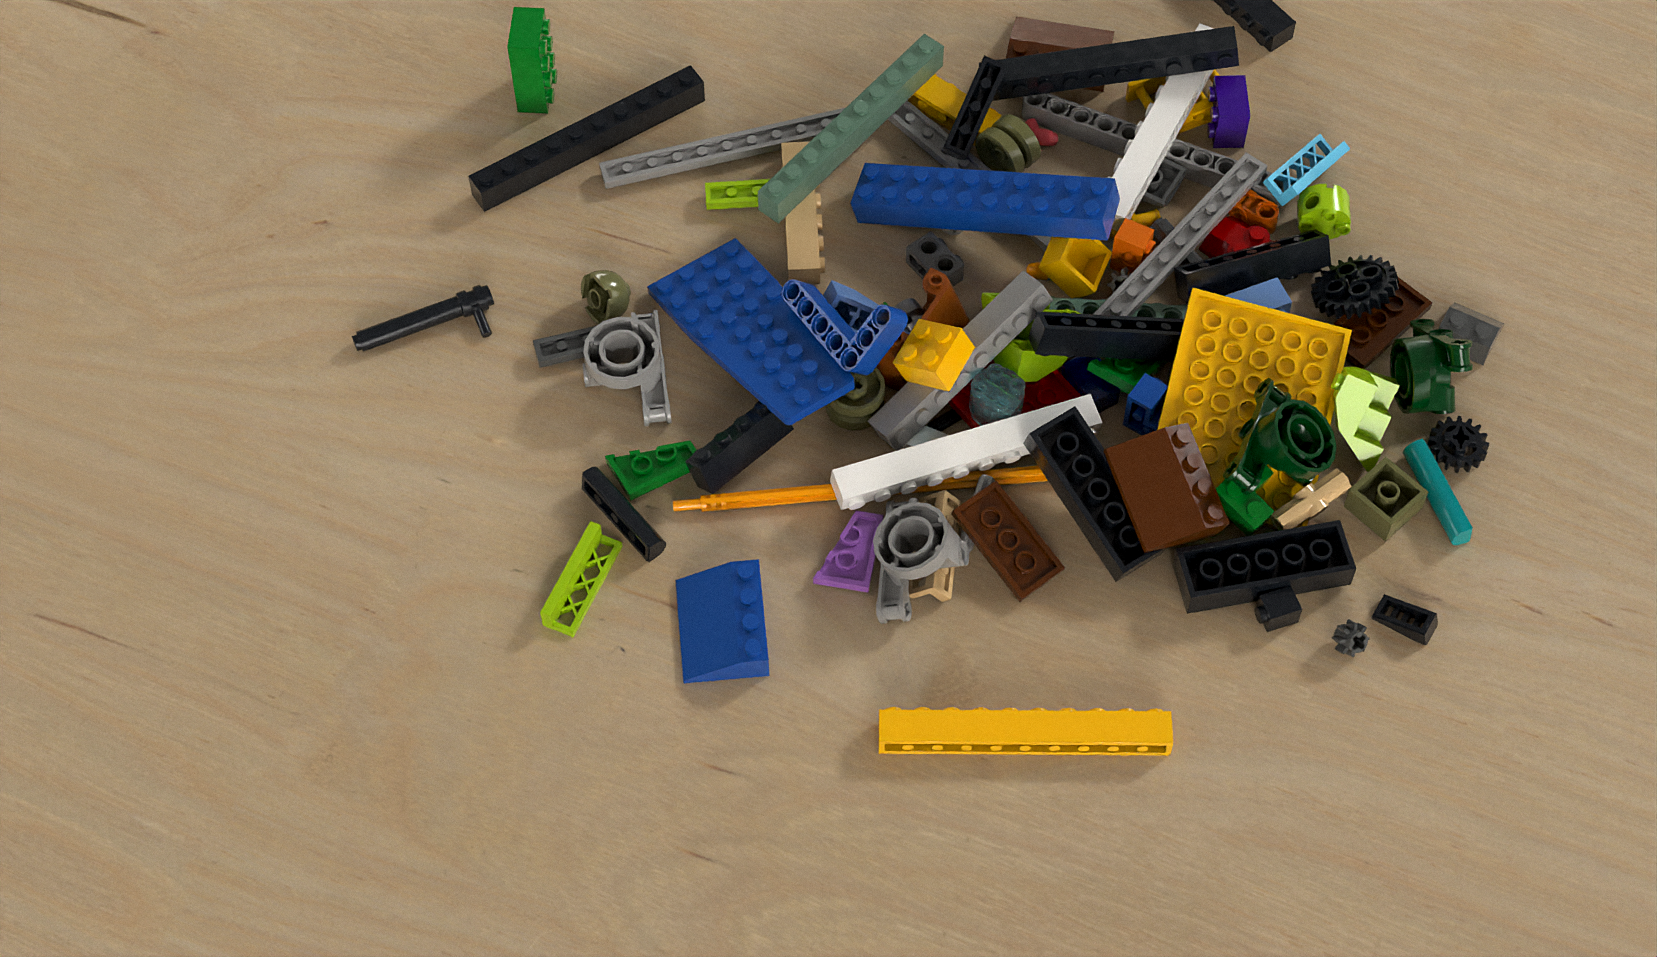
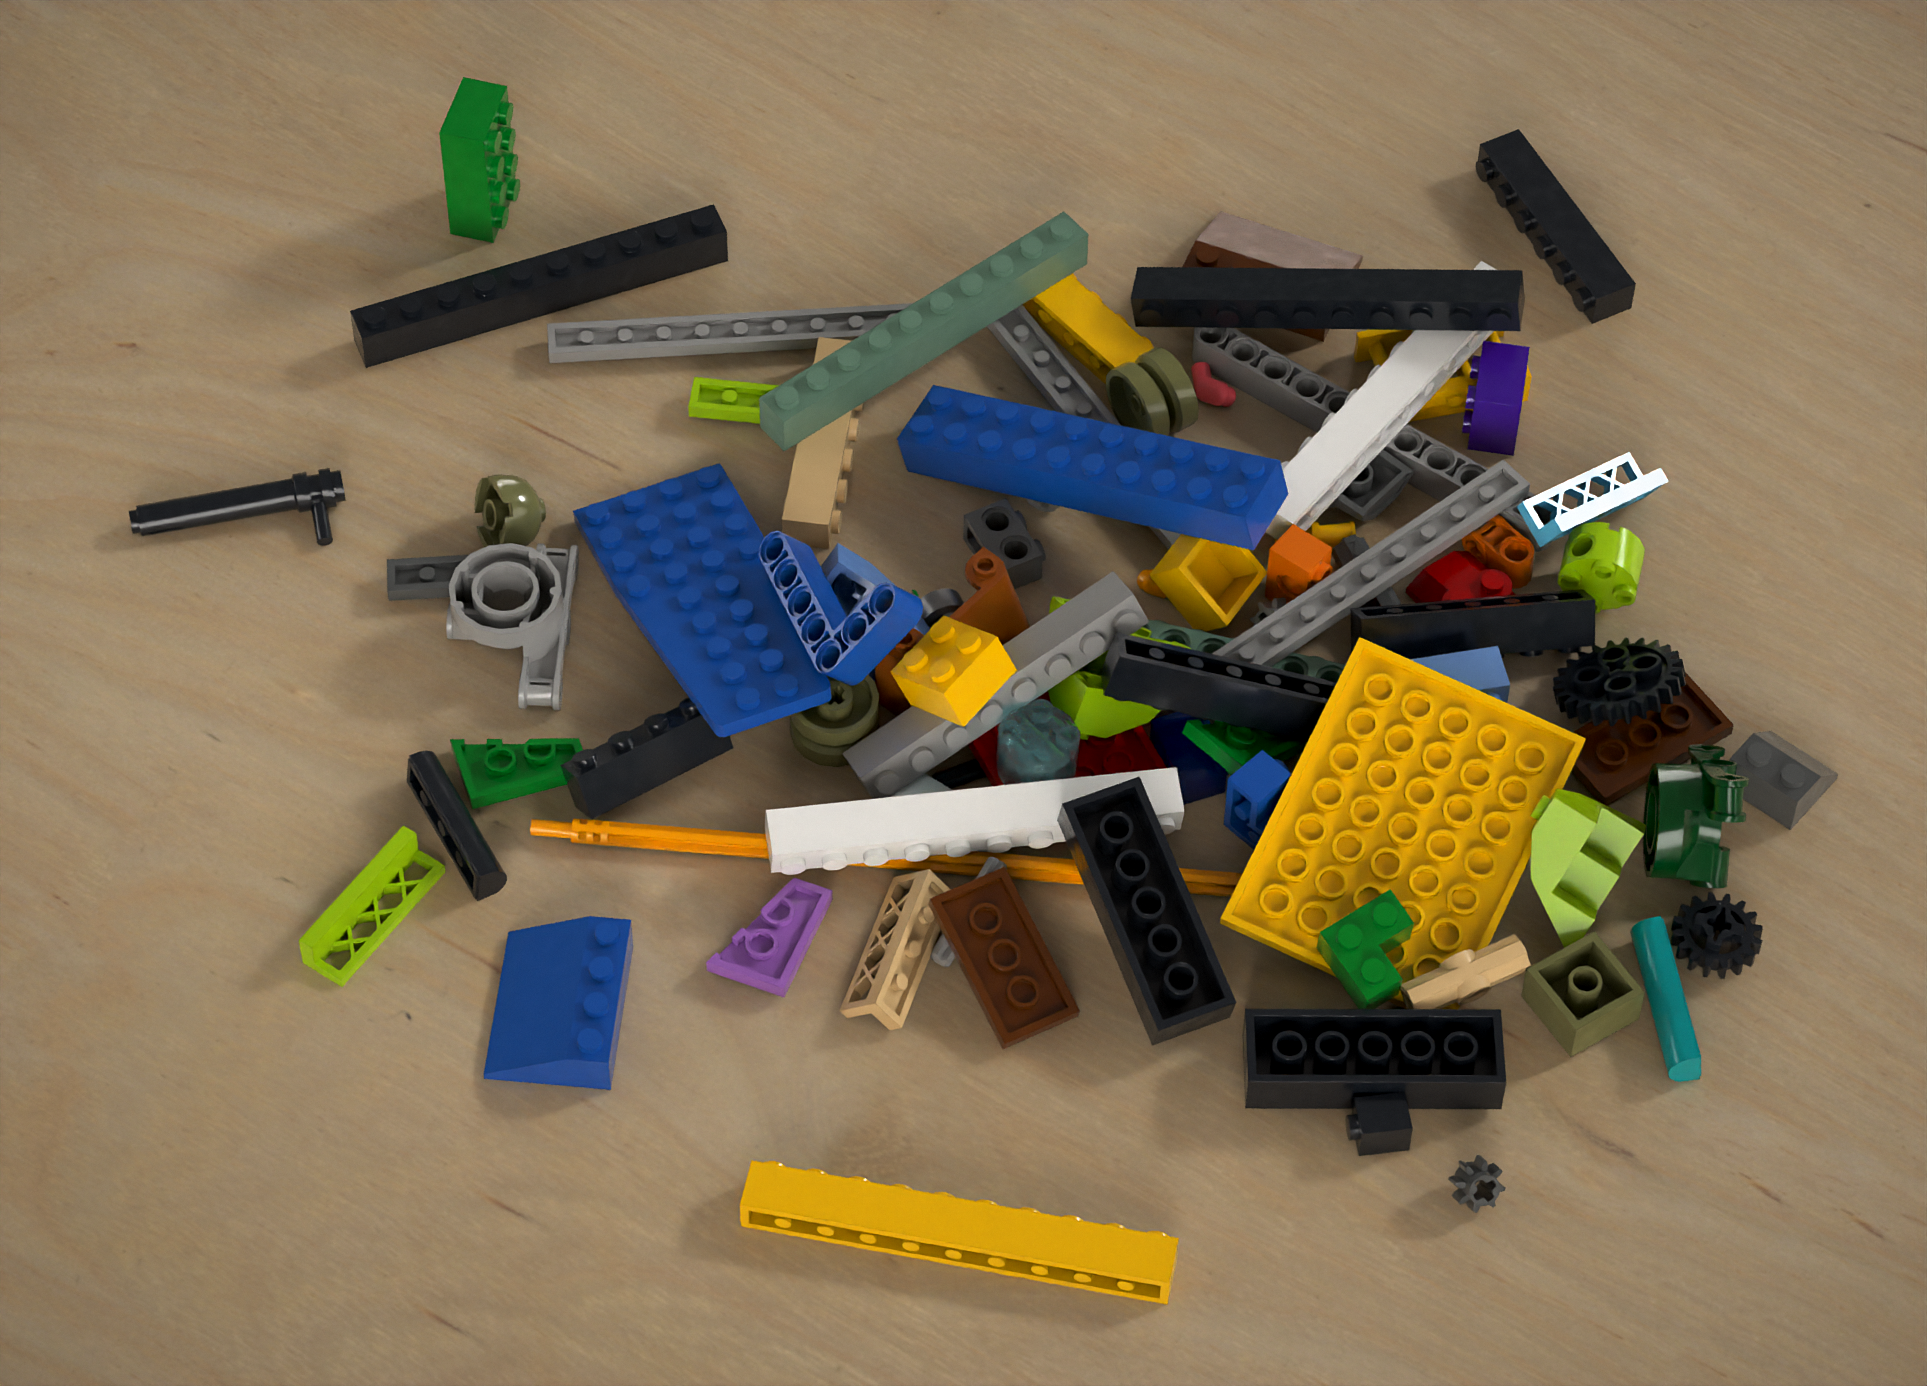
camera: 10 degrees right, 5 degrees down
(907, 529) = (851, 935): light grey piece -> none
(974, 108) = (1112, 331): black brick -> none
(1167, 488) = (1249, 919): reddish brown slope -> none
(1284, 435) = (1444, 873): dark green piece -> none
(1421, 615) = (1589, 1191): black slope -> none

